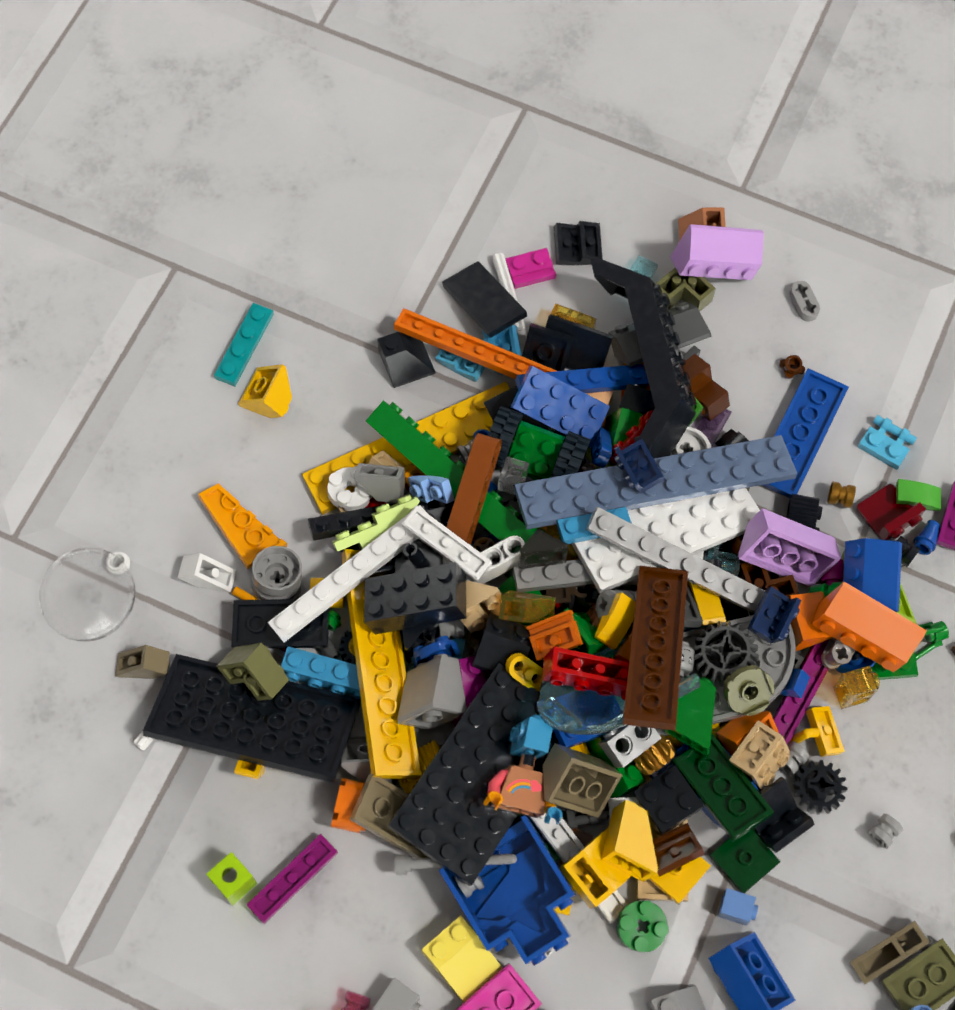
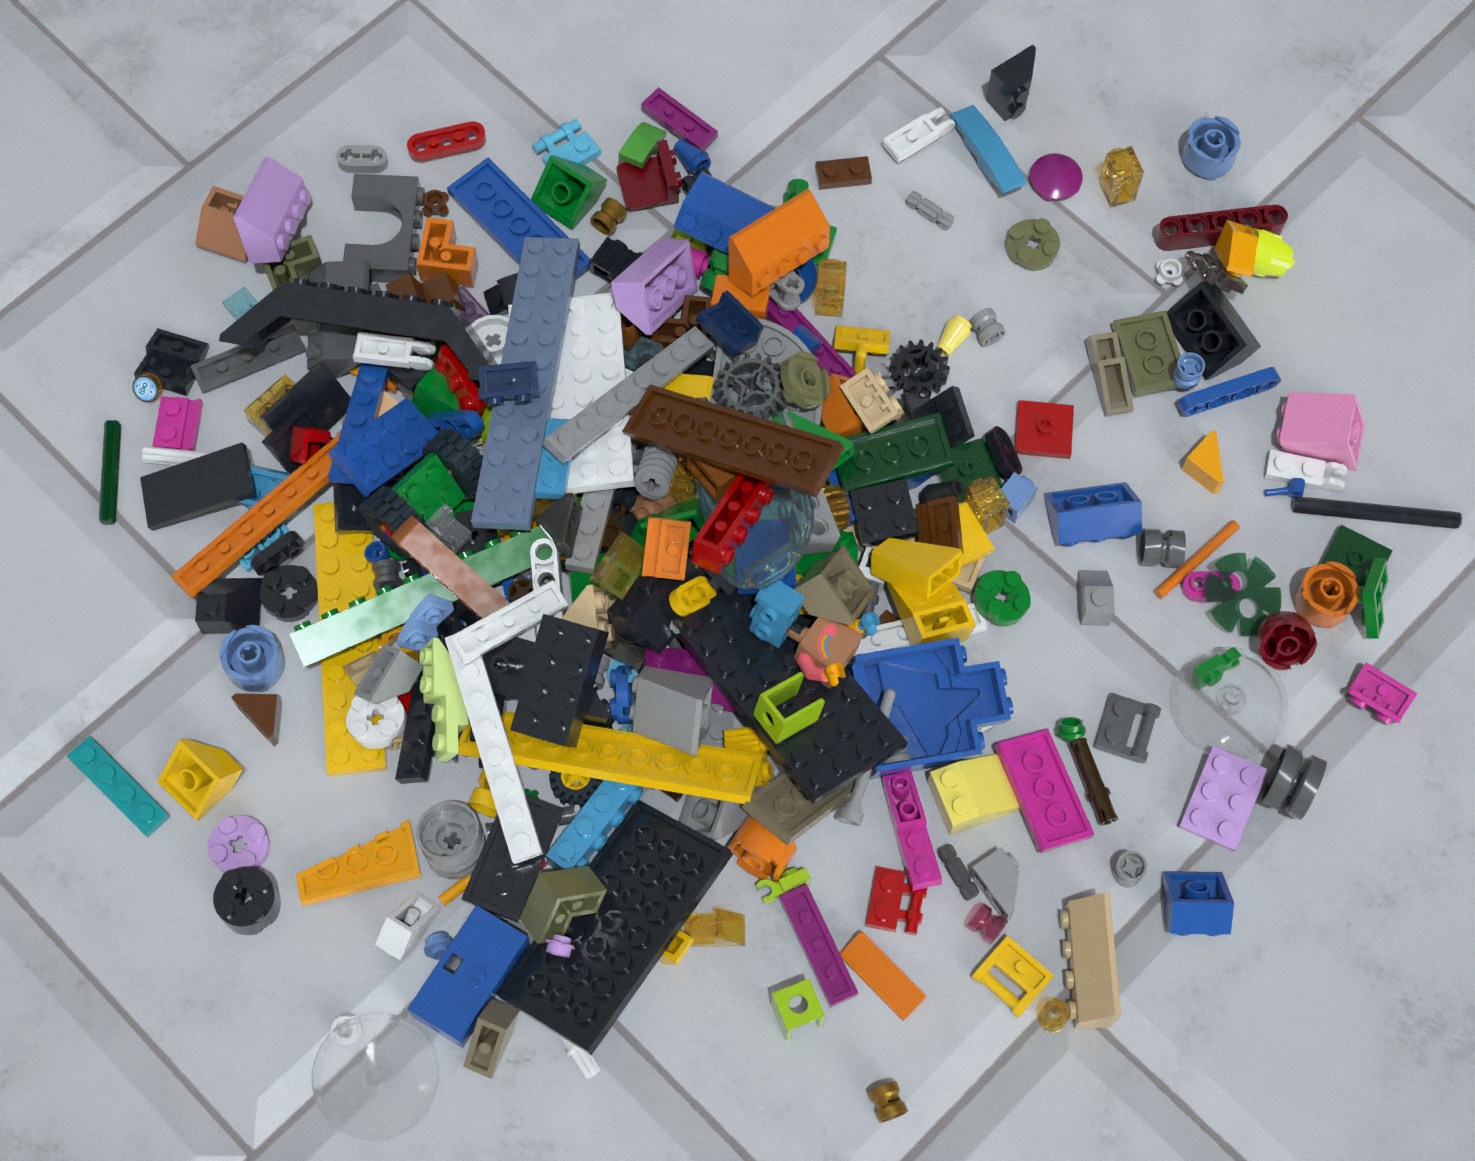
camera: 70 degrees left, 0 degrees up
(181, 629) = (468, 976): none -> blue brick
(185, 447) = (256, 913): none -> black brick
(189, 972) = (888, 1102): none -> pearl gold wheel
(198, 600) = (437, 945): none -> medium blue plate
(219, 682) = (559, 946): none -> lavender plate
(228, 426) = (230, 830): none -> lavender plate
(279, 796) = (716, 929): none -> clear yellow slope
(285, 938) = (883, 976): none -> orange slope
(329, 414) = (263, 712): none -> reddish brown slope
(336, 839) = (790, 880): none -> lime plate
(350, 920) = (886, 901): none -> red plate
(366, 387) = (265, 655): none -> medium blue brick
(391, 970) = (958, 872): none -> dark grey axle
(409, 920) = (911, 830): none -> dark pink slope
(430, 382) = (277, 582): none -> black plate
(460, 763) = (778, 694): none -> lime piece
(462, 376) = (276, 553): none -> black plate
(474, 240) = (109, 472): none -> dark green axle
(545, 354) = (307, 442): none -> red panel
(549, 235) = (147, 387): none -> tile
(582, 275) = (246, 359): none -> dark grey plate
(617, 622) = (682, 480): yellow slope -> none
(637, 379) = (392, 351): none -> white hinge
(711, 842) = (942, 490): none -> pearl dark grey cone
(714, 882) = (987, 503): none -> clear yellow brick
(731, 357) = (398, 197): none -> dark grey arch
(745, 385) = (441, 254): none -> orange brick
(774, 883) = (1003, 452): none -> black plate
(813, 912) = (1044, 429): none -> red plate
(847, 344) = (434, 141): none -> red plate
(849, 456) = (567, 190): none -> green slope
(864, 805) = (954, 333): none -> light yellow cone

